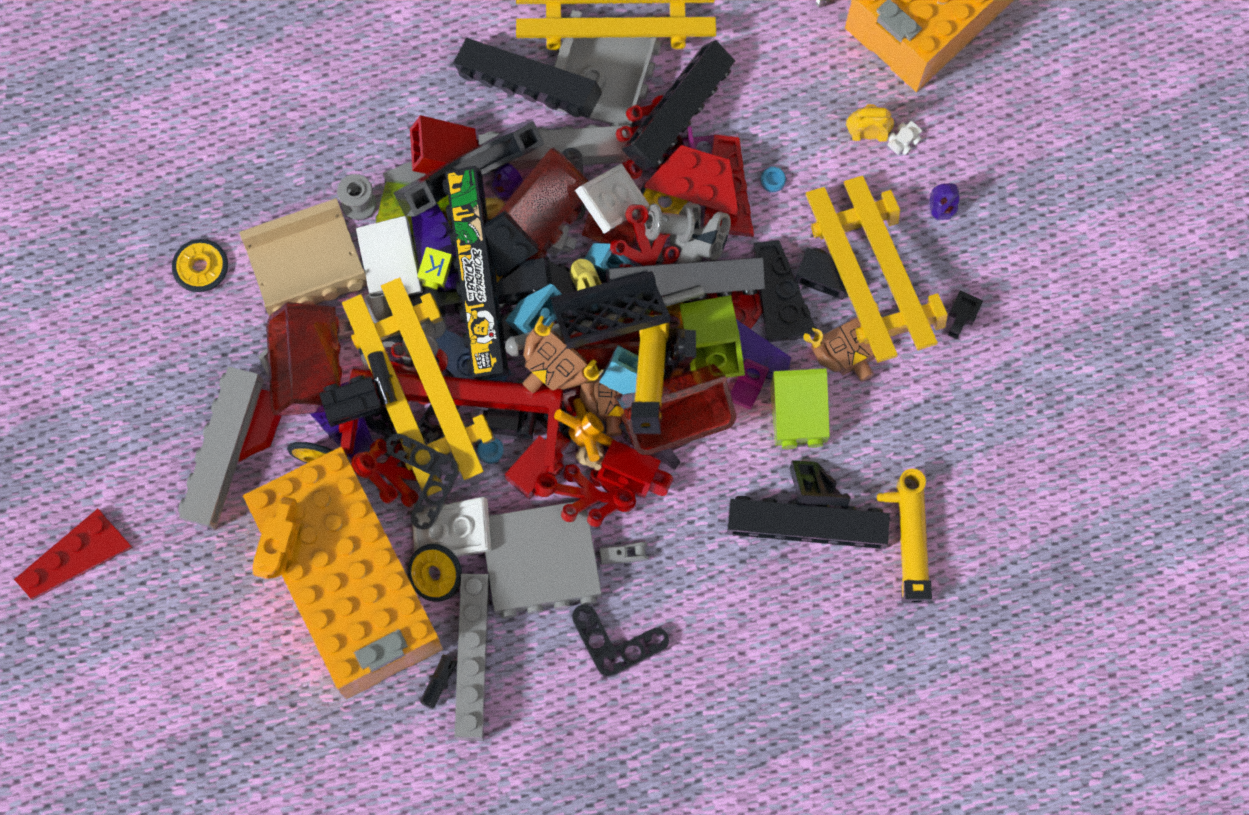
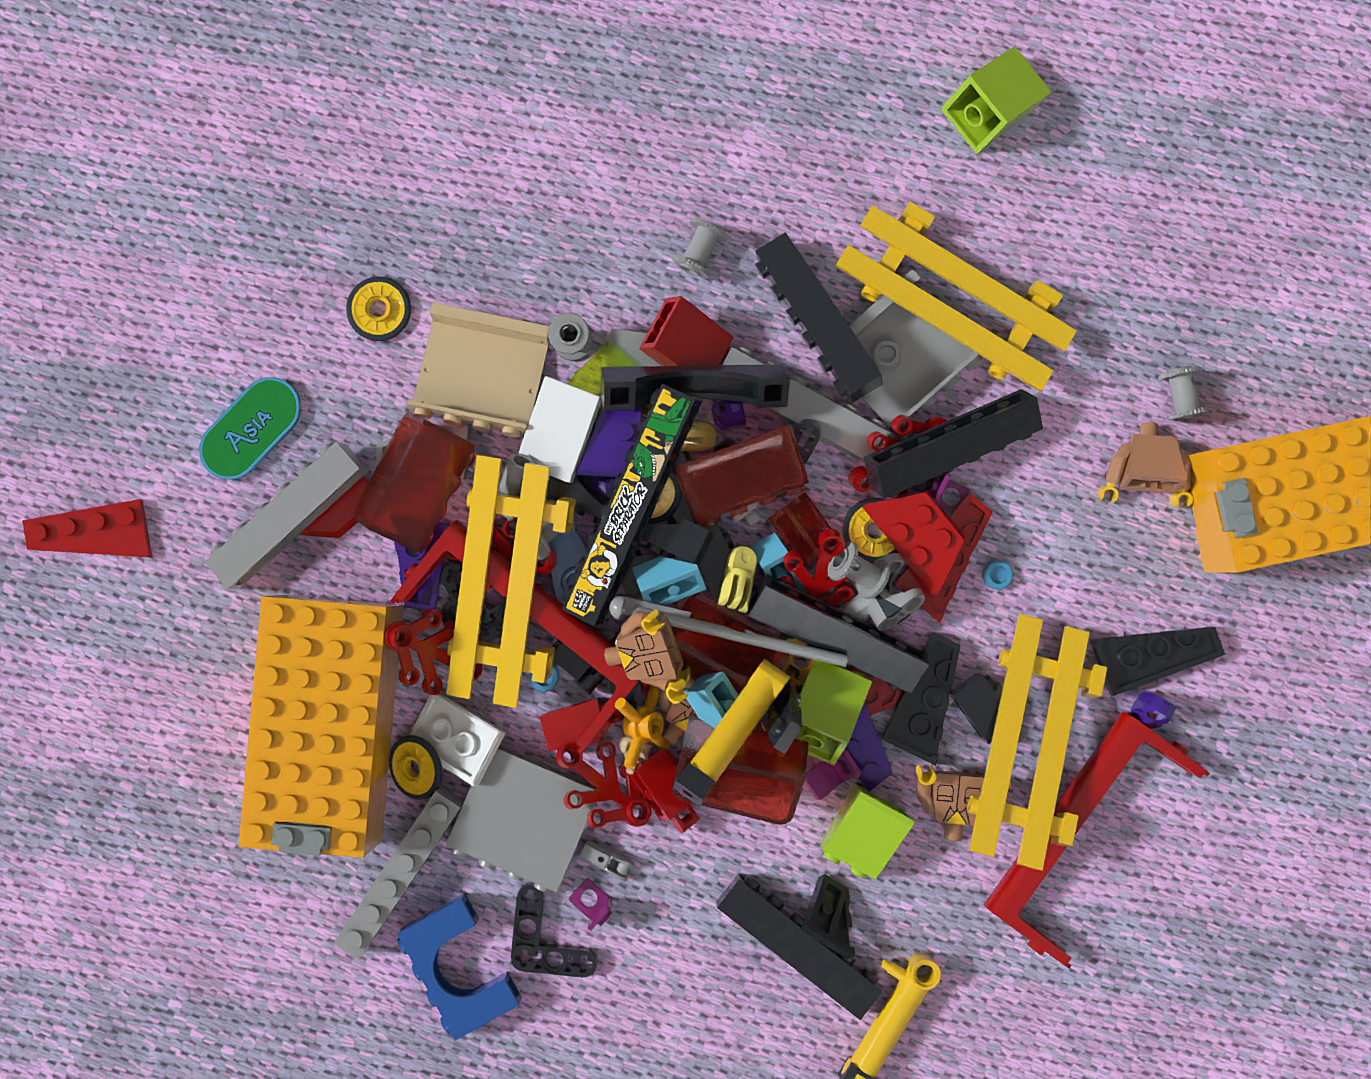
camera: 35 degrees right, 15 degrees up
(153, 407) = (250, 428): none -> green tile
(277, 541) = (261, 671): light orange piece -> none
(307, 451) = (369, 581): wheel -> none
(350, 400) = (425, 561): black brick -> none
(381, 377) = (469, 558): black axle -> none
(412, 85) = (700, 248): none -> light grey hose
(432, 468) = (467, 675): black beam -> none
(434, 268) = (593, 473): neon yellow brick -> none
(438, 681) = (356, 871): black axle -> none
(508, 243) = (681, 496): black wing -> none
(585, 732) = (460, 1008): none -> blue arch
(608, 299) = (736, 613): black fence -> none
(610, 196) = (819, 505): white tile -> none
(644, 592) = (597, 913): none -> magenta bracket
(826, 41) = (1150, 464): none -> nougat torso
(870, 123) = (1134, 578): yellow piece -> none
(907, 134) = (1166, 614): white piece -> none
(919, 166) = (1154, 655): none -> black wing
(937, 280) = (1080, 799): none -> red piece
(964, 311) = (1095, 832): black plate -> none

